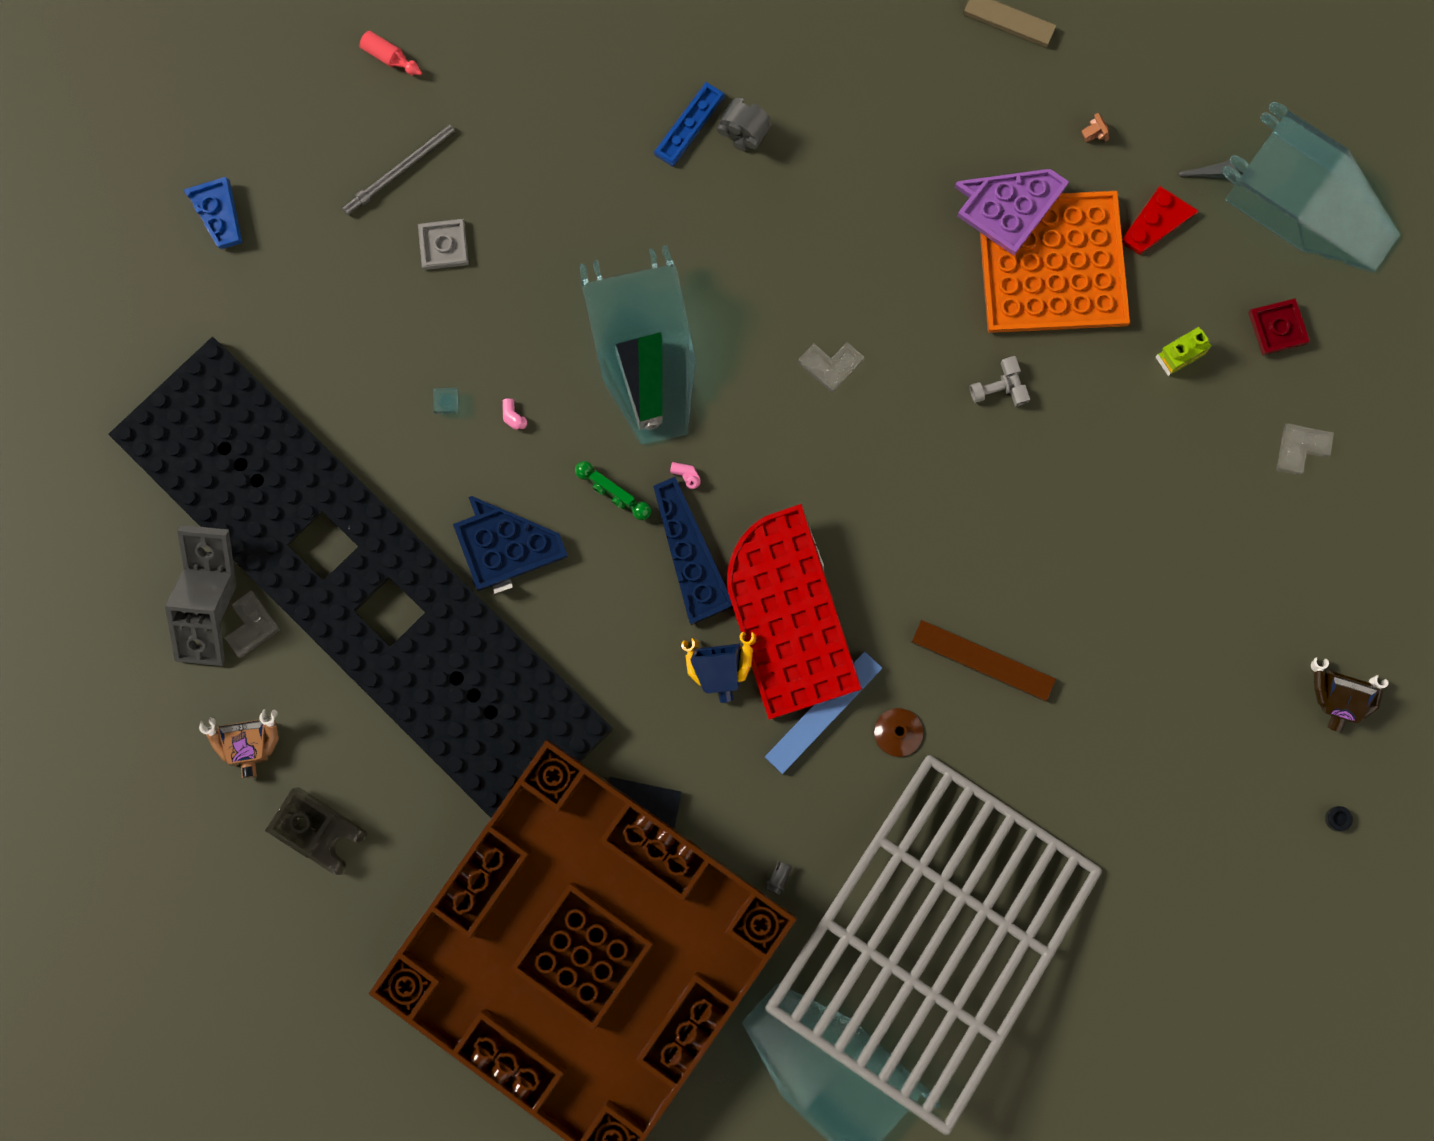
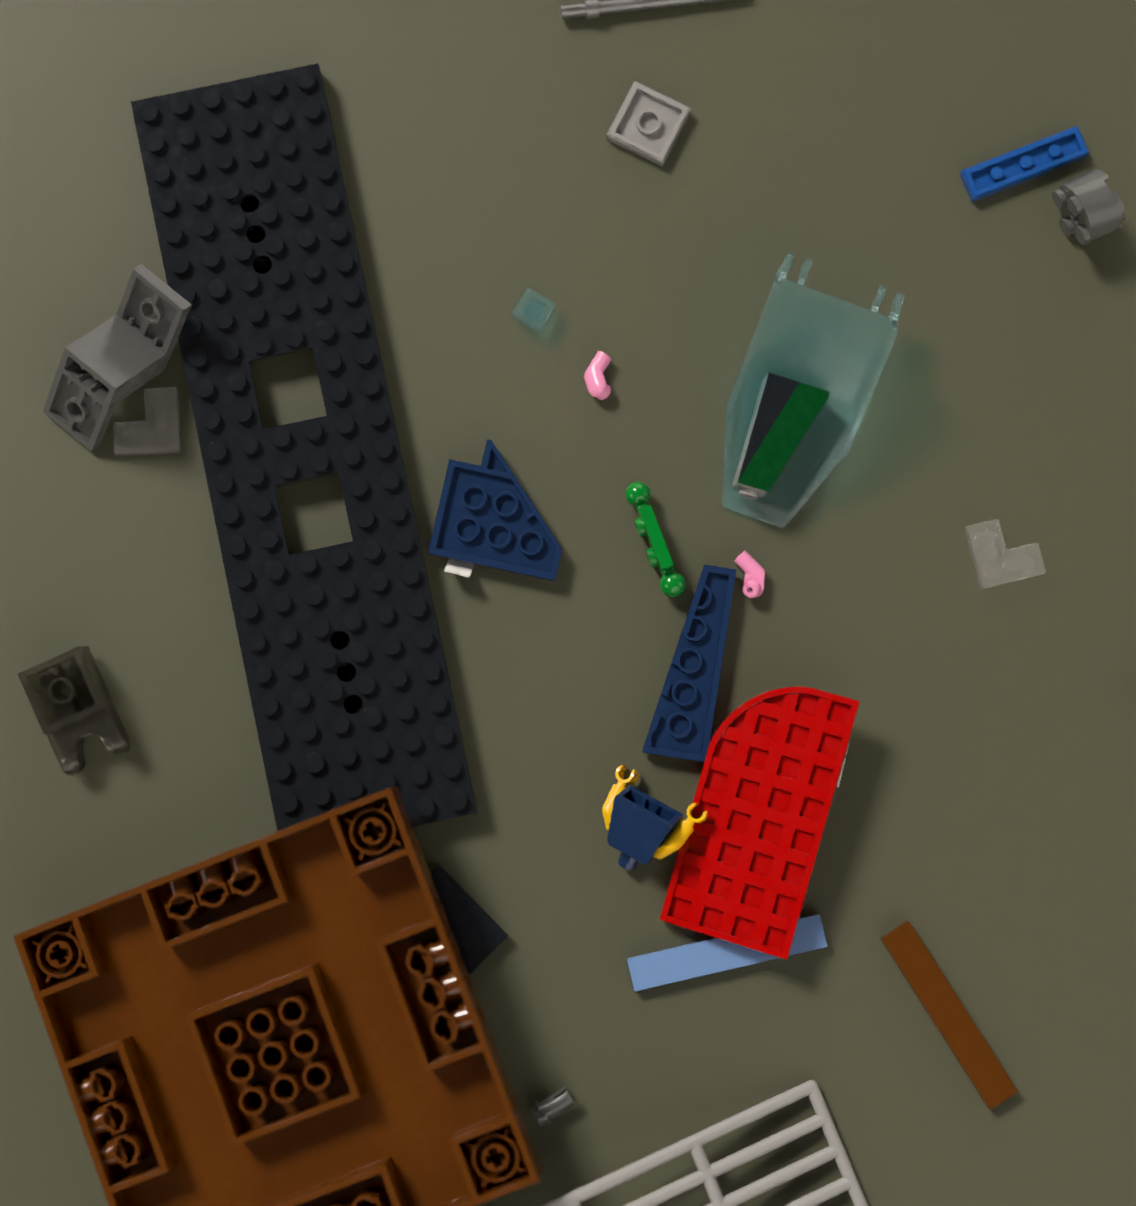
camera: 25 degrees right, 5 degrees up
(244, 742) = (59, 555): torso -> none
(890, 742) = (780, 1026): reddish brown dish -> none

